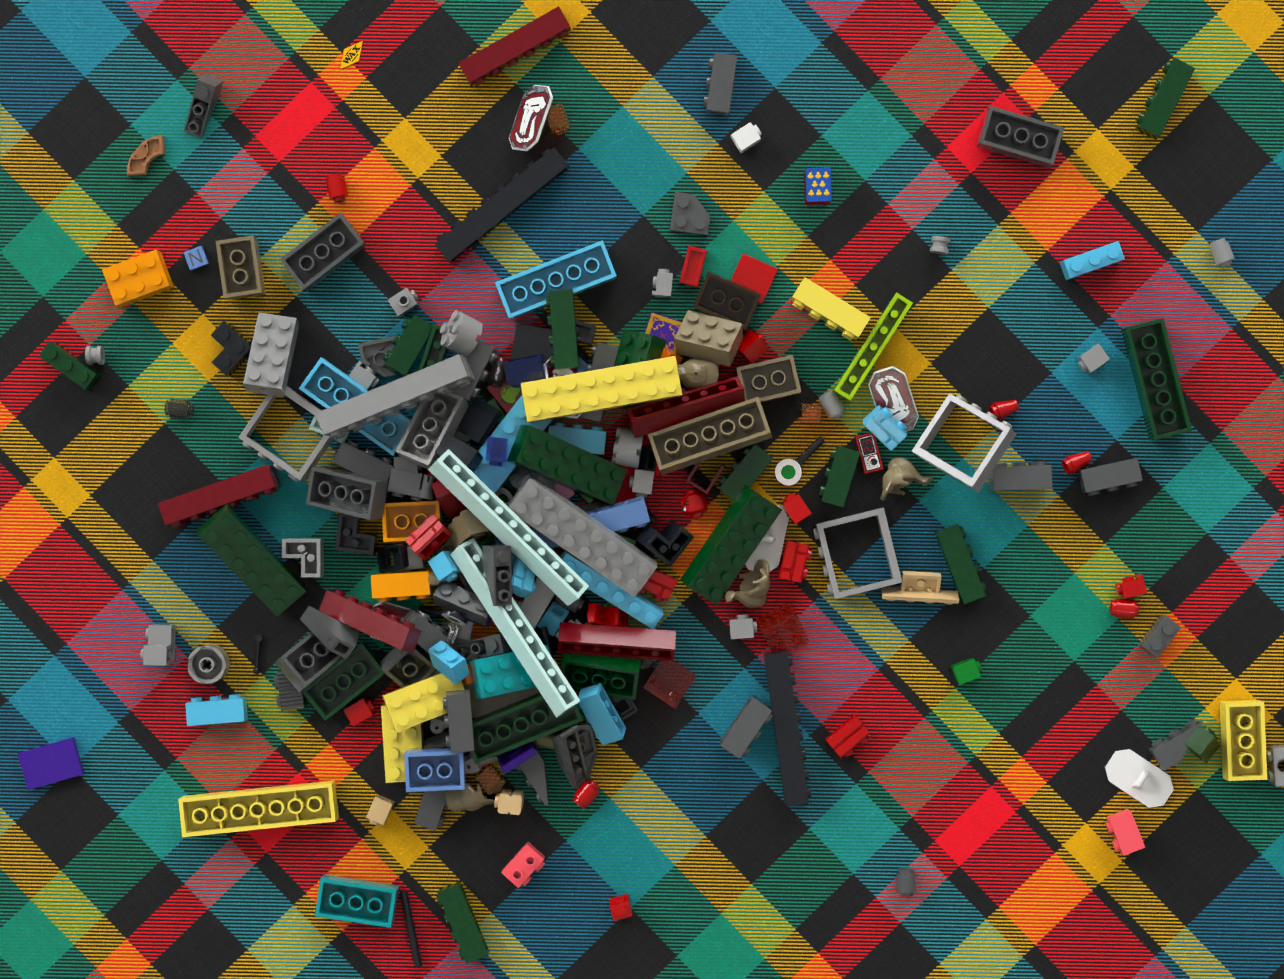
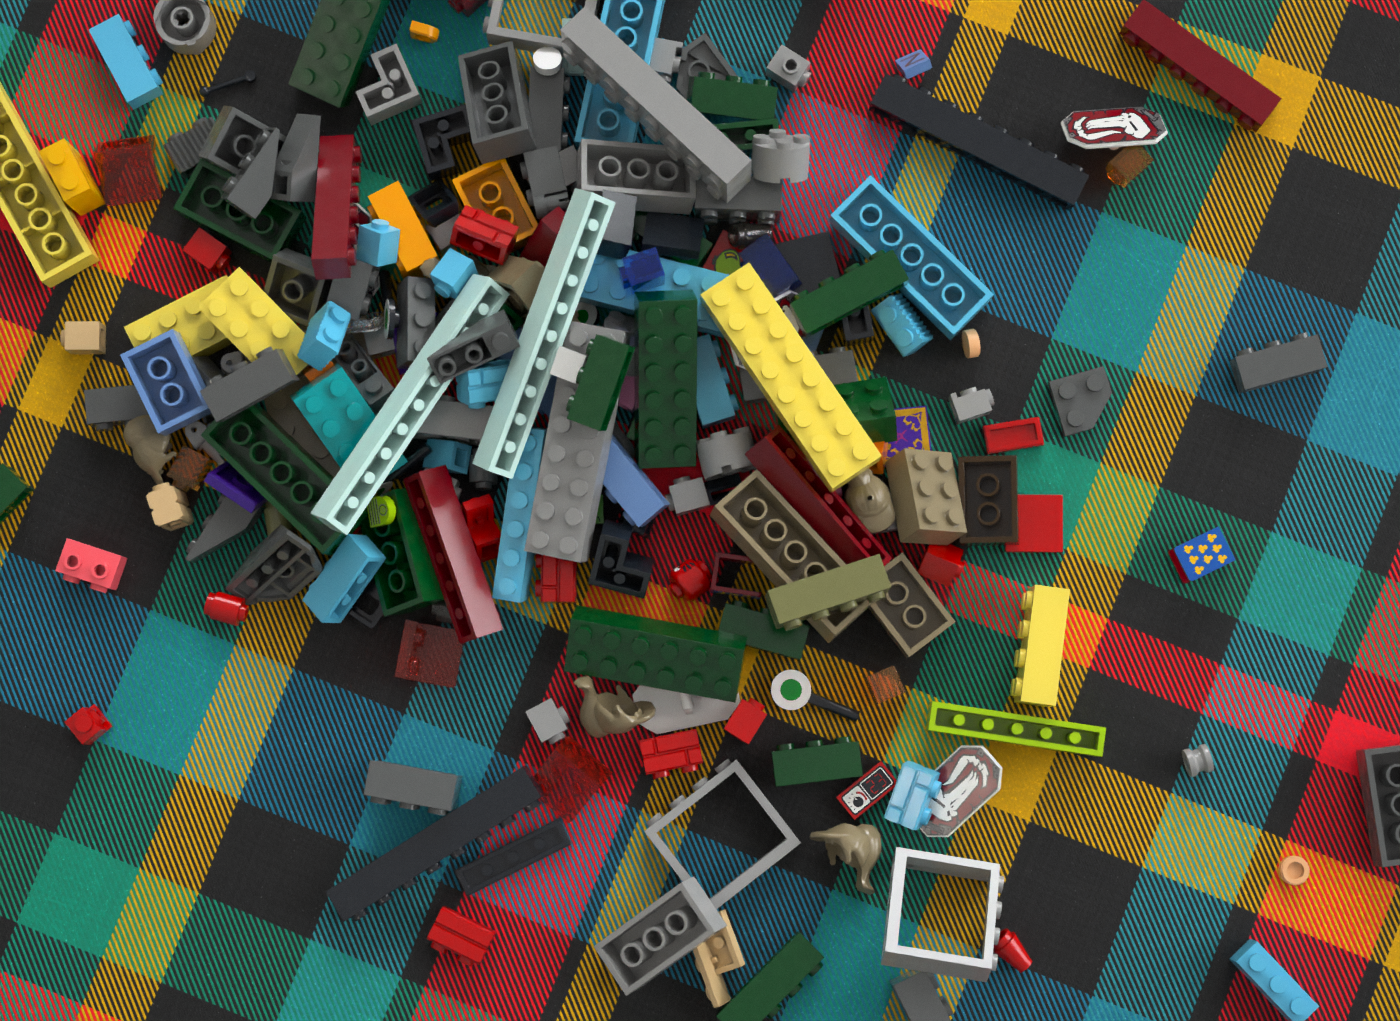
camera: 75 degrees right, 5 degrees down
(277, 775) = (72, 177): none -> yellow brick
(280, 518) = (423, 32): none -> light orange tile
(285, 738) = (128, 170): none -> clear red bracket
(332, 664) = (254, 181): none -> dark grey slope
(334, 450) = (547, 61): none -> white tile
(405, 604) = (378, 243): none -> medium azure brick
(434, 223) = (913, 64): none -> medium blue tile
(535, 521) = (567, 364): none -> white tile
(555, 507) = (599, 382): none -> dark green brick
(572, 673) = (381, 511): none -> lime tile
(594, 304) = (901, 324): none -> medium azure brick
(625, 266) = (970, 343): none -> light nougat tile
(742, 425) = (828, 591): none -> olive brick
(746, 137) = (1222, 429): white brick -> none
(814, 684) = (513, 857): none -> black tile
(831, 405) = (910, 708): light grey brick -> none
(902, 617) = (660, 935): none -> light grey brick
(1030, 217) = (1293, 870): none -> light nougat tile

